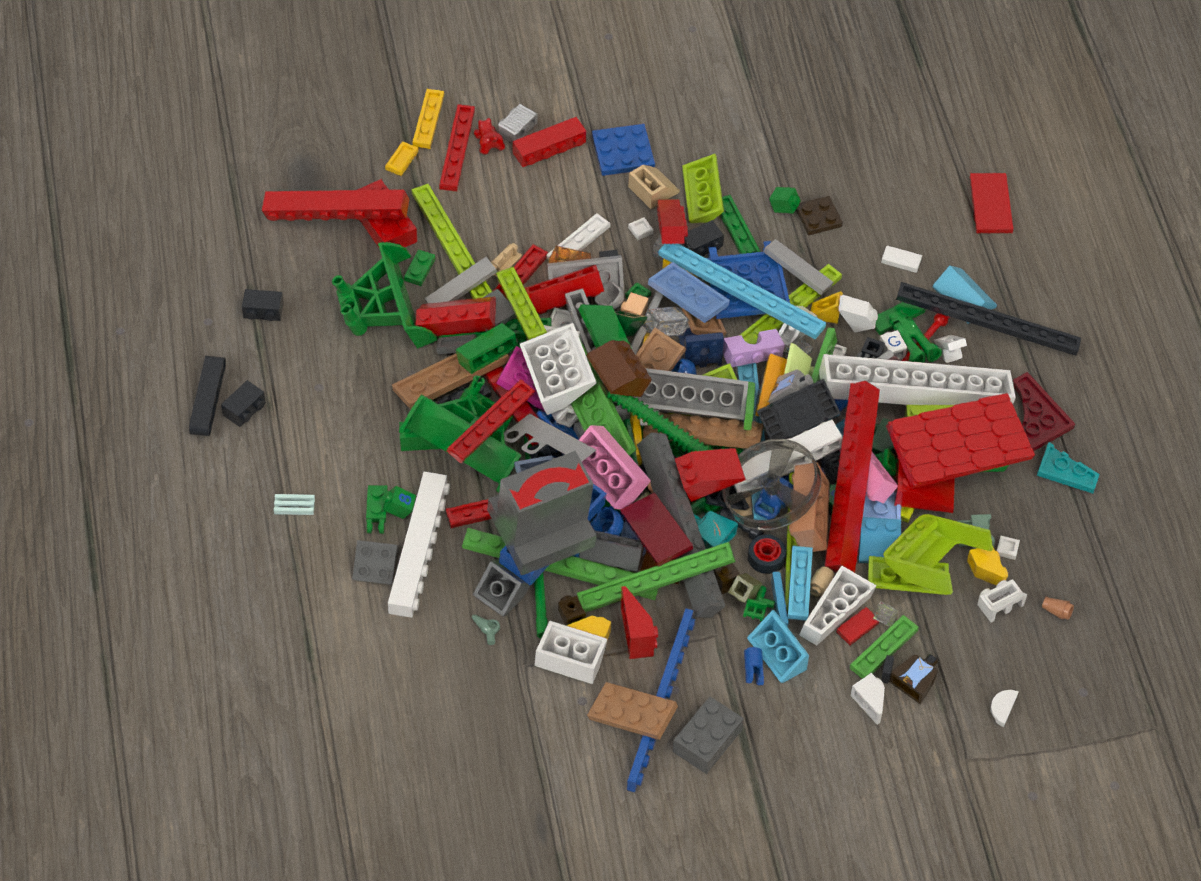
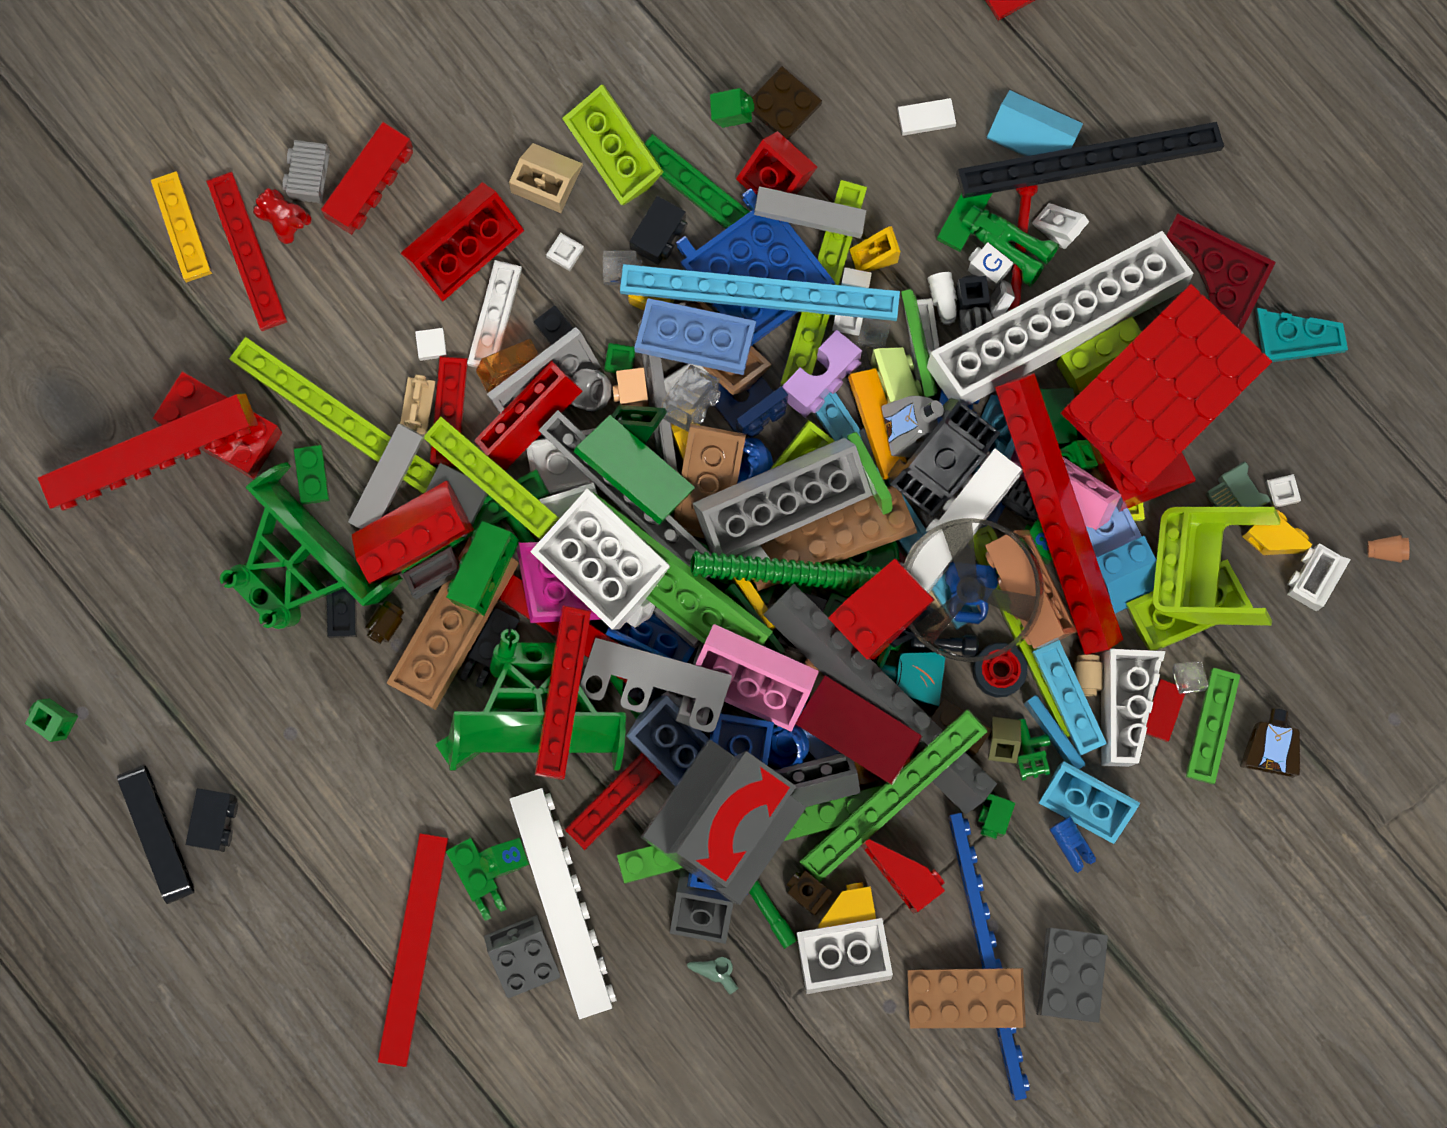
camera: 30 degrees left, 25 degrees up
(189, 312) = (50, 720): none -> green brick
(262, 305) = (141, 654): black brick -> none
(294, 501) = (389, 919): light aqua tile -> none
(313, 527) = (413, 950): none -> red tile
(390, 339) = (341, 614): none -> black plate
(401, 158) = (182, 310): yellow tile -> none
(411, 355) = (384, 622): none -> dark brown brick
(532, 236) = (431, 344): none -> white tile
(584, 195) = (462, 241): none -> red slope
(619, 368) = (690, 532): reddish brown slope -> none
(622, 149) = (470, 134): blue plate -> none
(671, 221) = (608, 232): red brick -> none
(715, 627) = (995, 816): none -> green brick
(796, 237) = (777, 166): none -> red slope
(855, 344) = (943, 296): none -> white hinge
(857, 313) = (924, 243): white slope -> none
(870, 696) = (1235, 806): white slope -> none
(887, 669) = (1234, 756): black tile -> none
(1002, 705) = (1392, 726): white tile -> none

